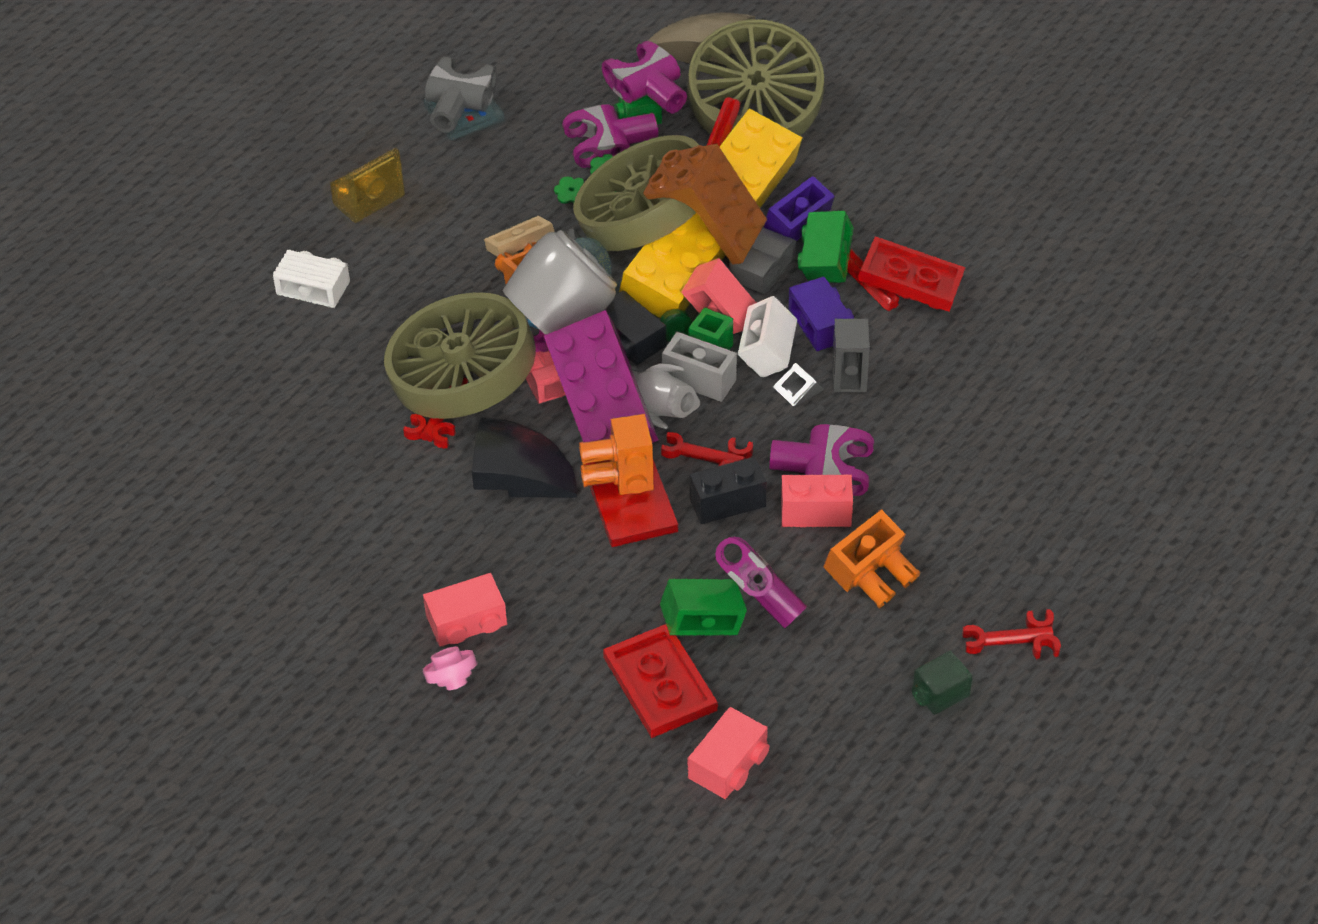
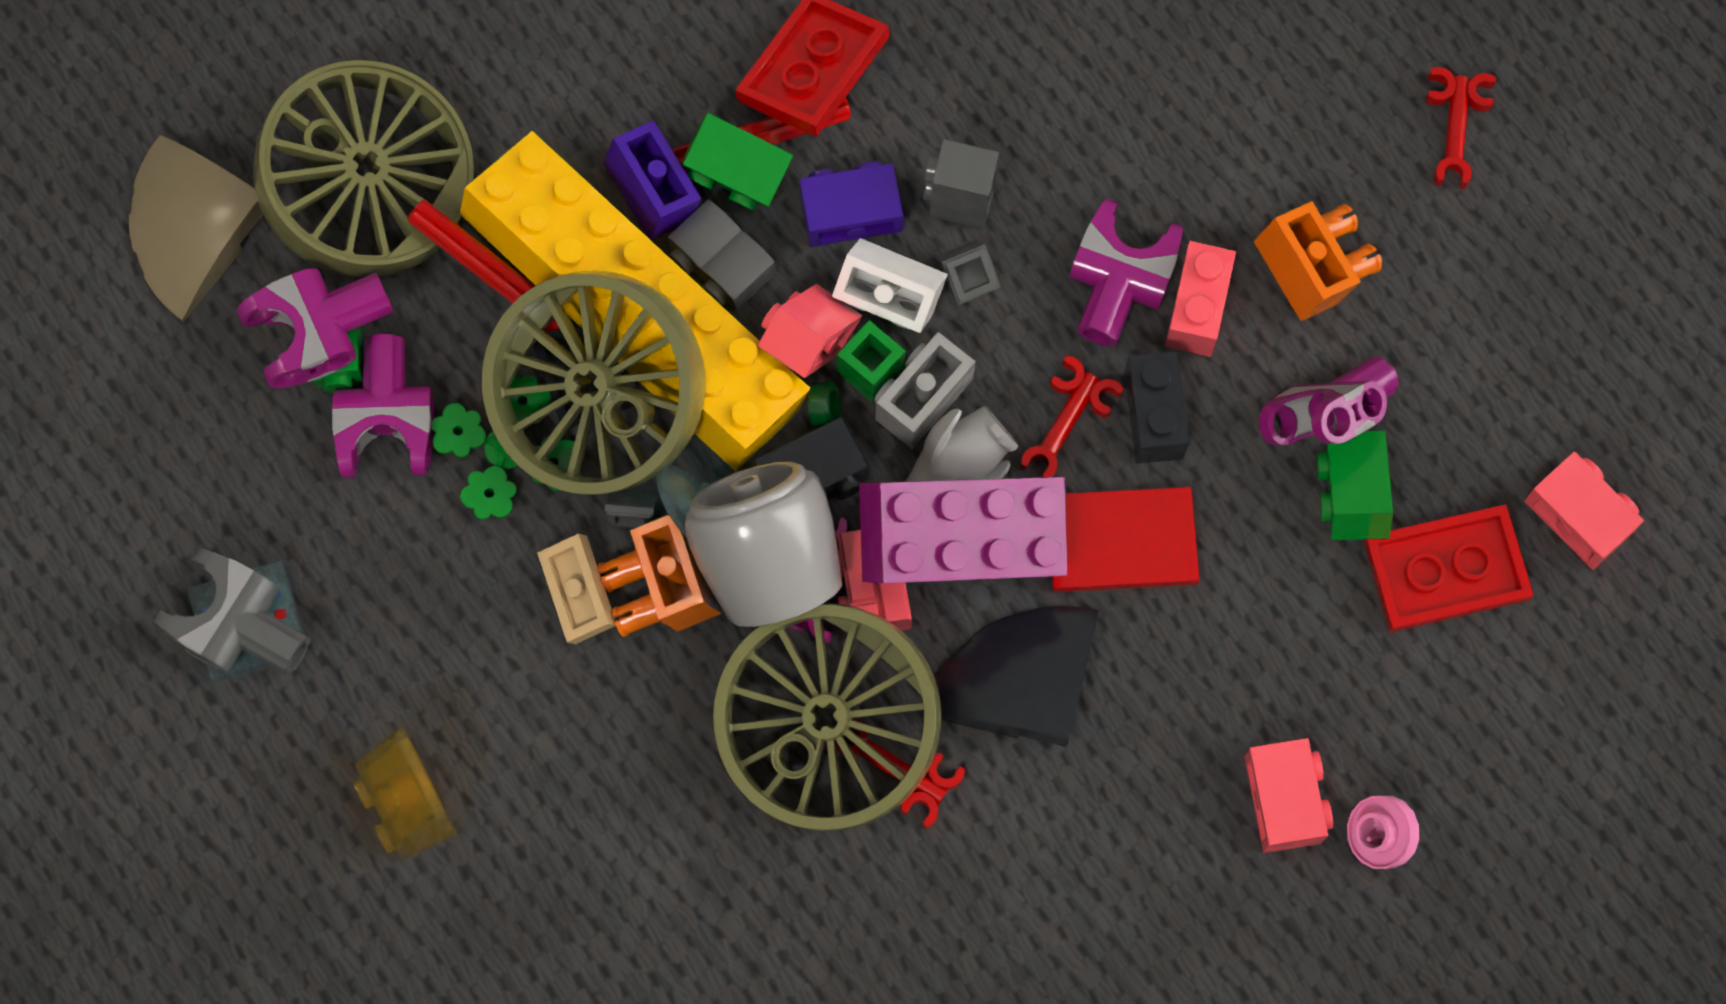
camera: 80 degrees left, 25 degrees up
(311, 278) = (582, 913): white brick -> none
(630, 457) = (1098, 522): orange brick -> none
(715, 192) = (656, 296): dark orange bracket -> none
(941, 683) = (1526, 229): clear green brick -> none

